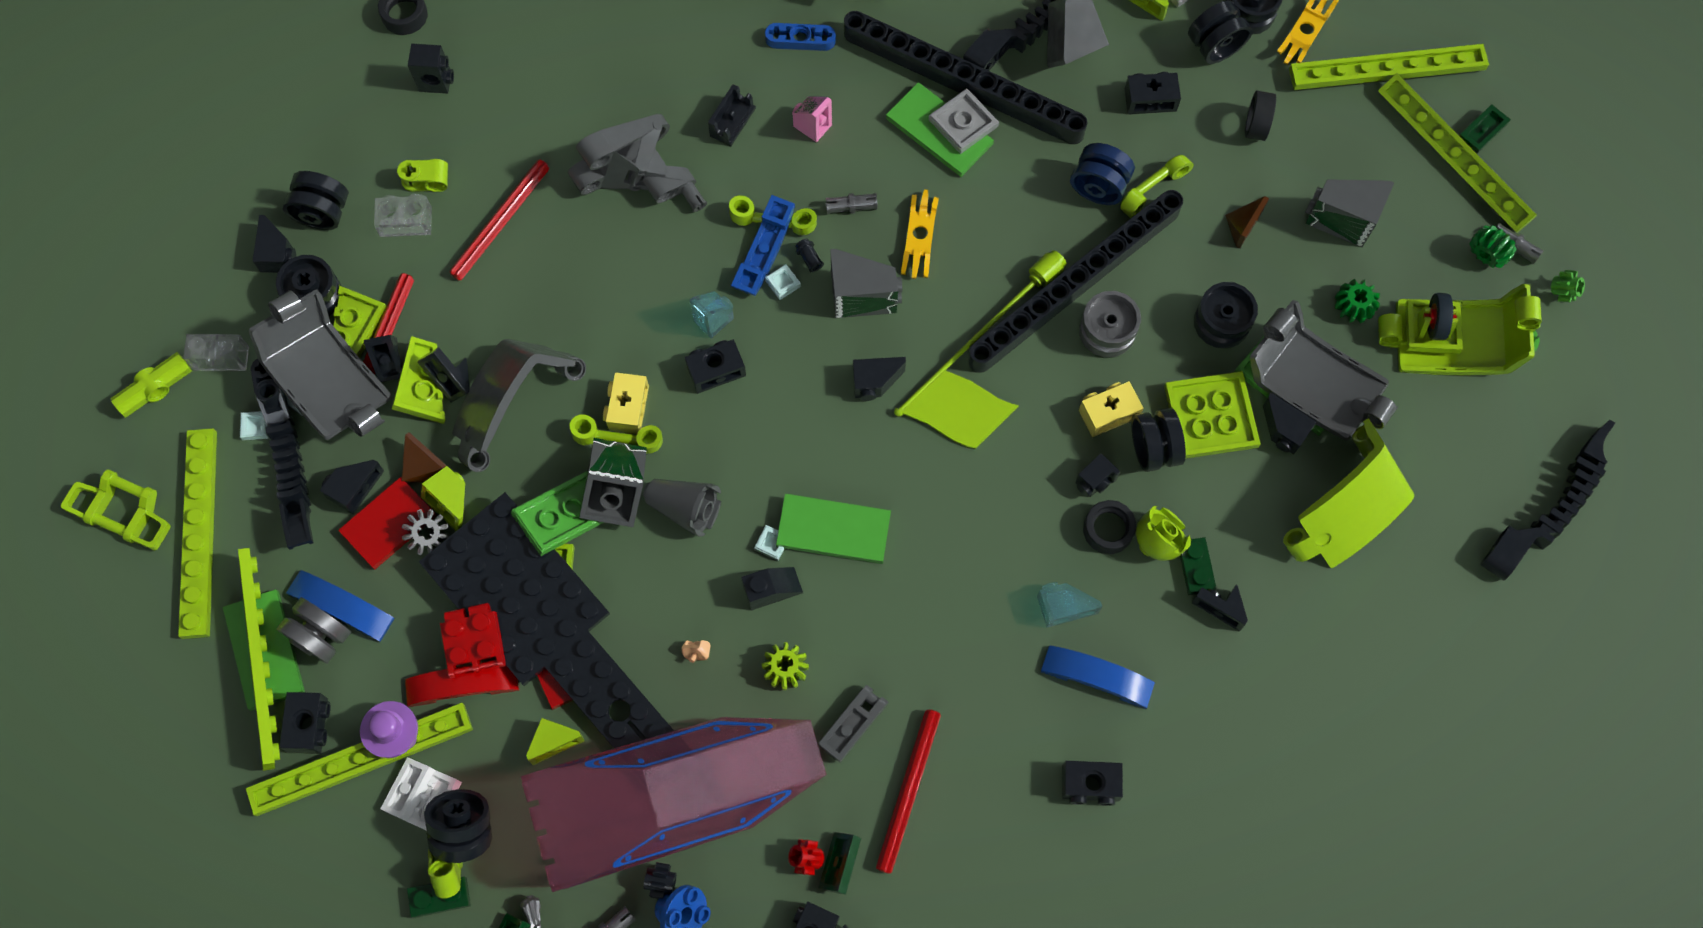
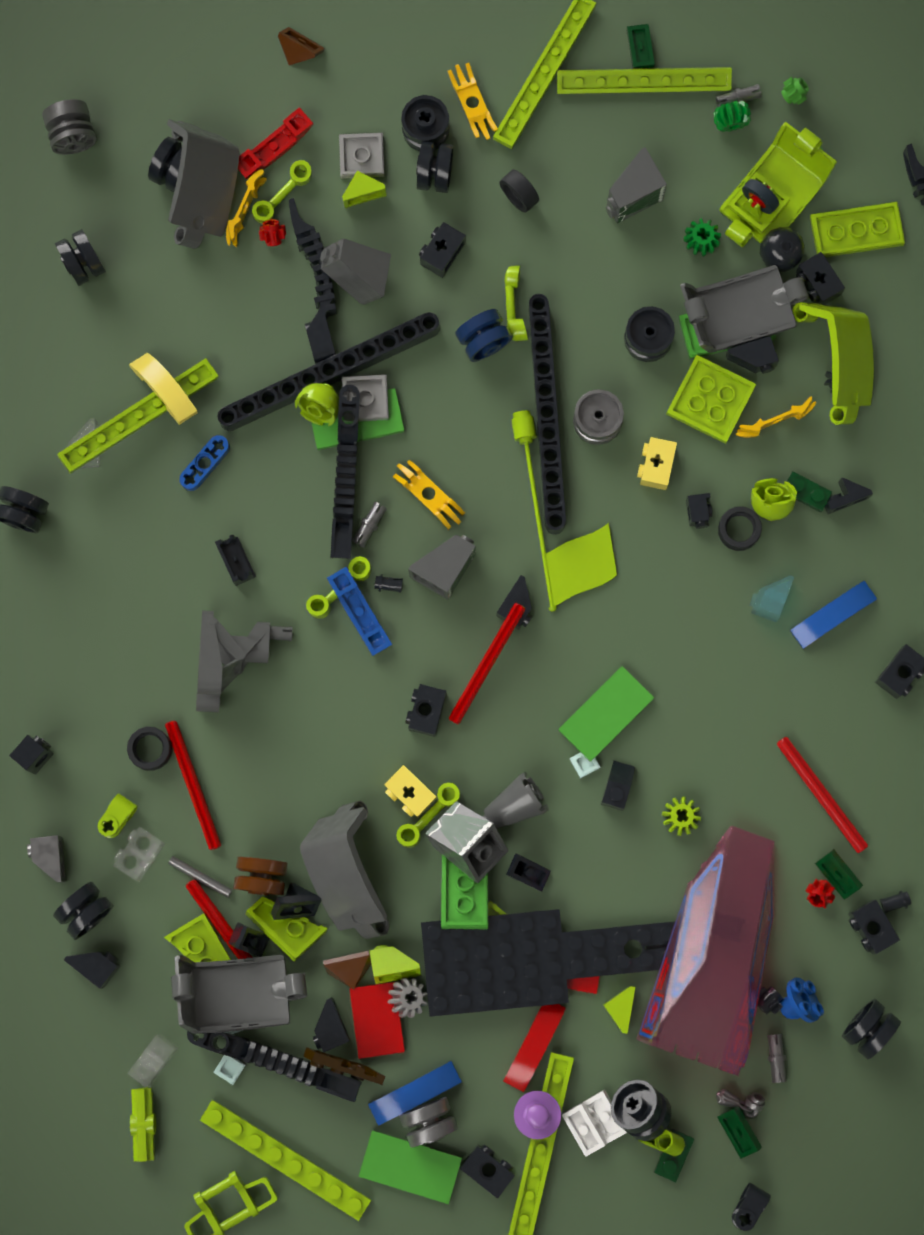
camera: 50 degrees left, 10 degrees up
(259, 669) = (428, 1177): lime plate -> none
(308, 274) = (136, 960): black wheel -> none
(317, 514) = (341, 1065): none -> dark brown wing
(349, 146) = (48, 856): none -> flat silver slope
(419, 284) = (199, 876): none -> flat silver bar
(448, 325) = (260, 876): none -> reddish brown wheel
(472, 639) = (515, 1016): red plate -> none
(501, 145) = (139, 734): none -> black tyre
(624, 558) = (528, 872): none -> black slope
(696, 650) = (626, 867): light nougat piece -> none
(711, 312) = (385, 683): clear light blue slope -> none
(782, 282) = (394, 616): light aqua tile -> none
(799, 385) = (487, 663): none -> red axle
(813, 117) = (281, 503): bright pink slope -> none
(852, 724) = (752, 799): dark grey plate -> none
(926, 82) = (318, 403): none -> lime cylinder
(945, 101) = (345, 481): none -> black piece
(1158, 439) = (706, 450): black wheel -> none
(1243, 220) = (586, 263): reddish brown slope -> none
(1264, 498) = (798, 412): none -> yellow piece
(1410, 379) = (782, 248): none -> black cylinder
(1412, 446) = (820, 269): none -> black brick
(1488, 437) = (857, 229): none -> lime tile

